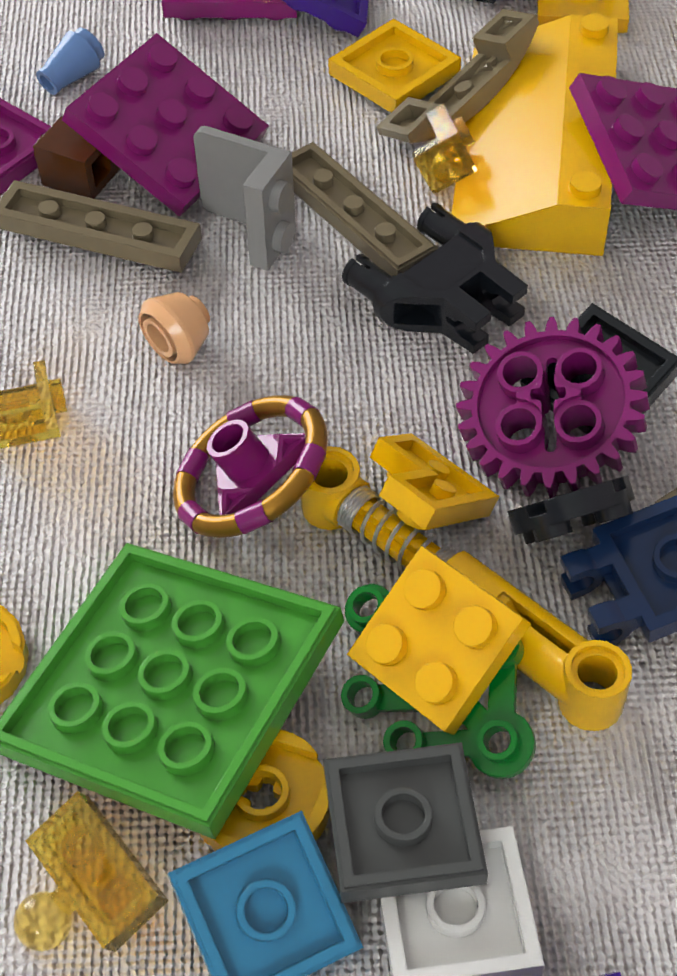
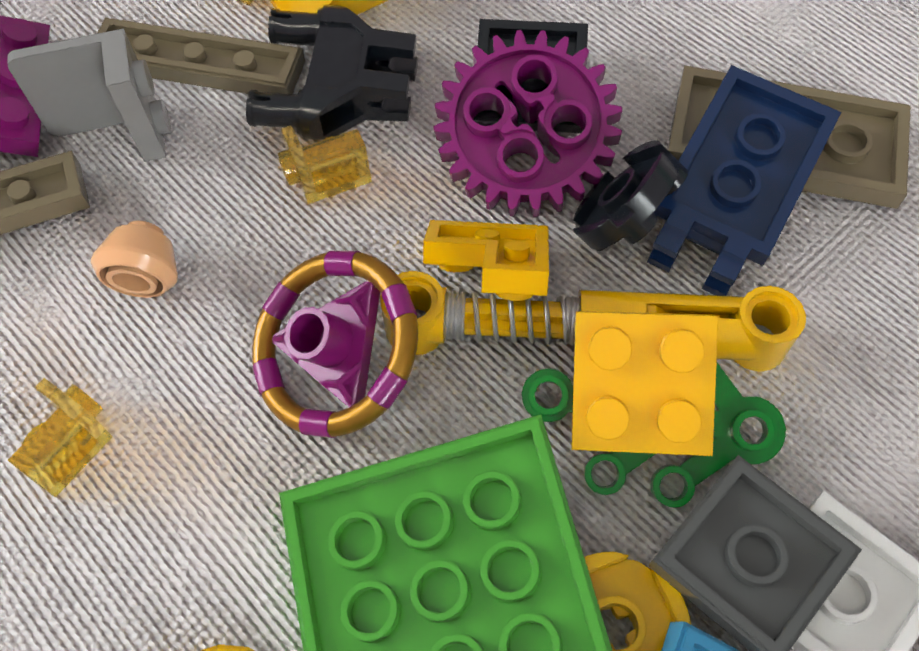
camera: 40 degrees left, 10 degrees up
(369, 344) = (325, 166): none -> clear yellow bracket

